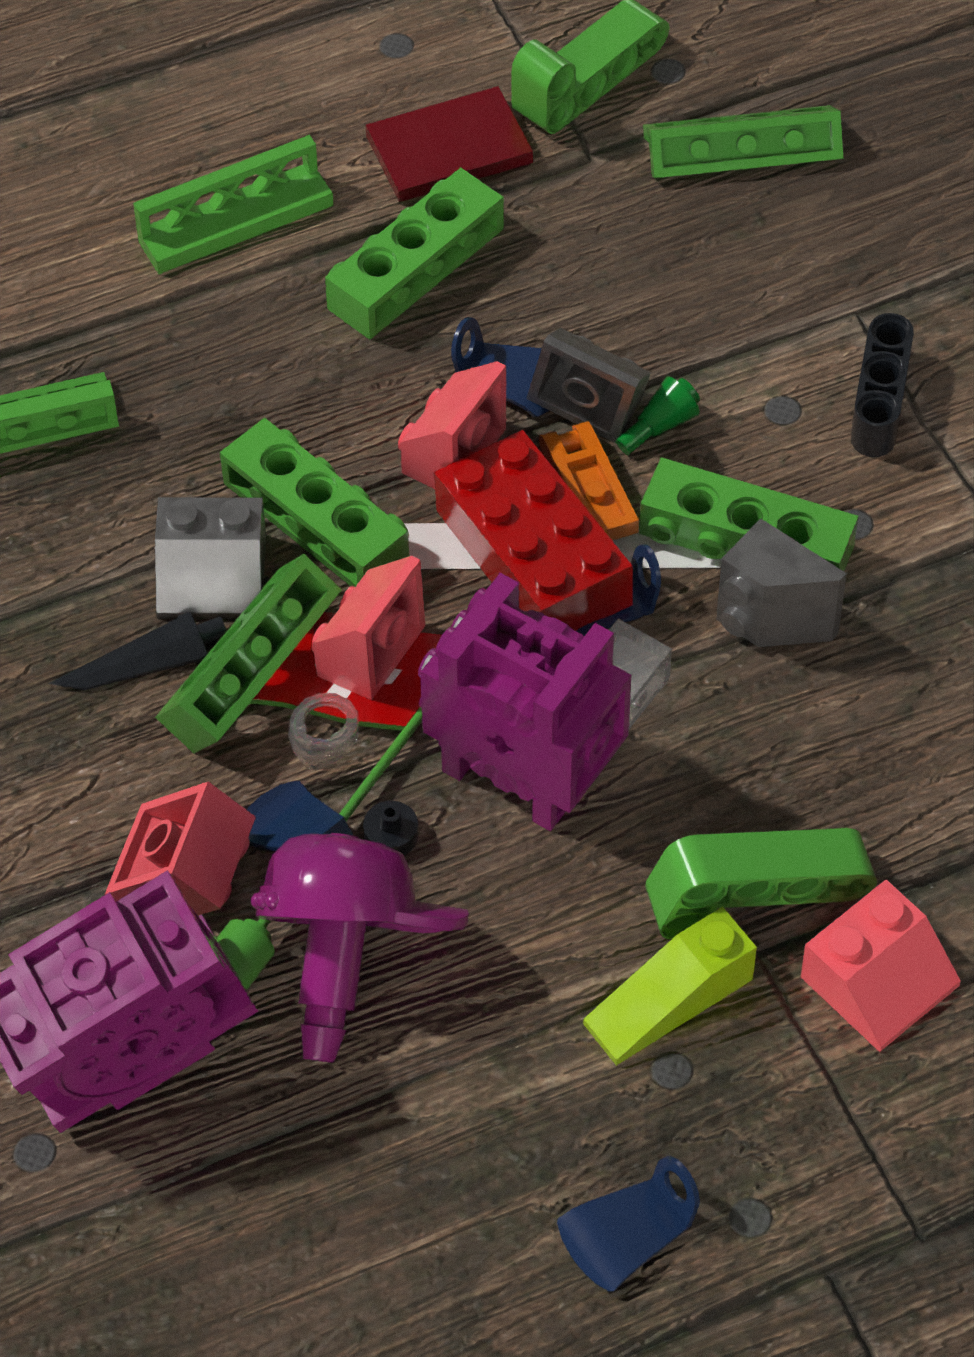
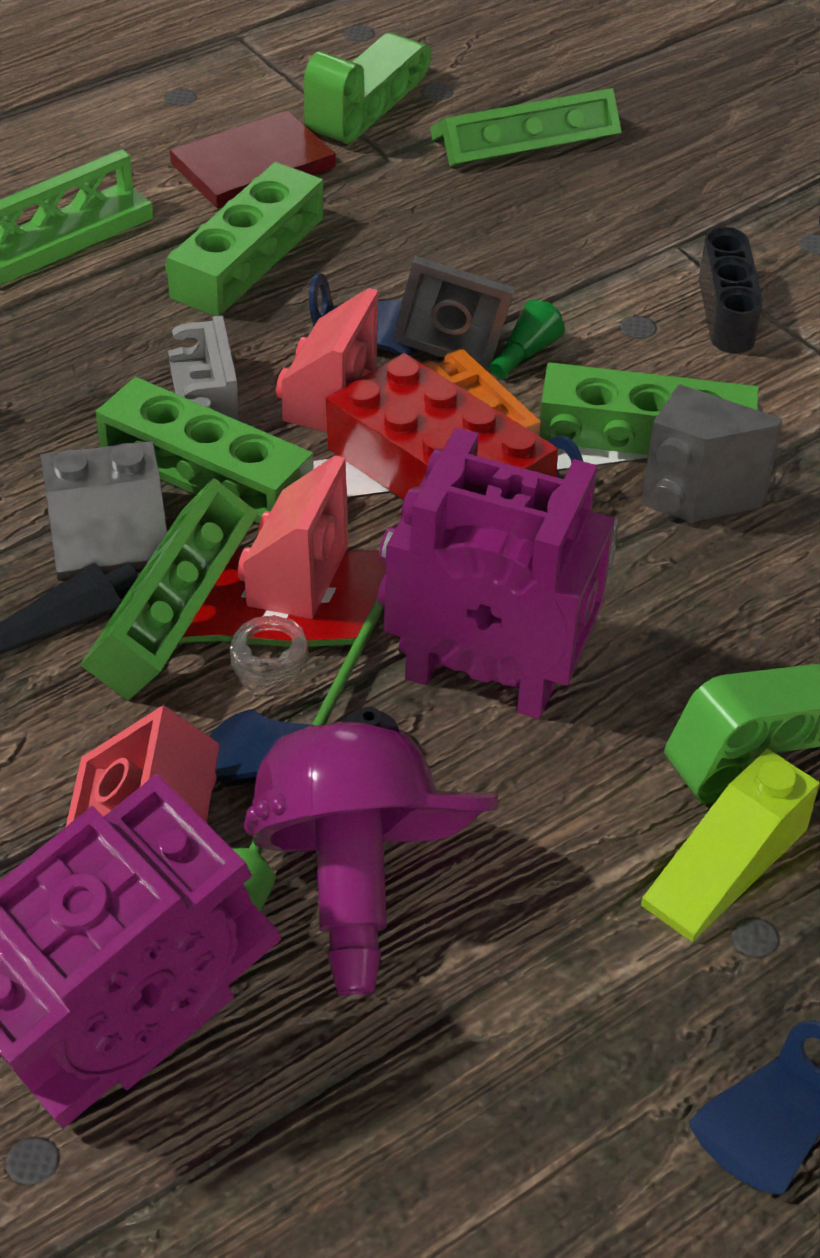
camera: 15 degrees left, 10 degrees down
(336, 412) = (206, 369): none -> light grey hinge

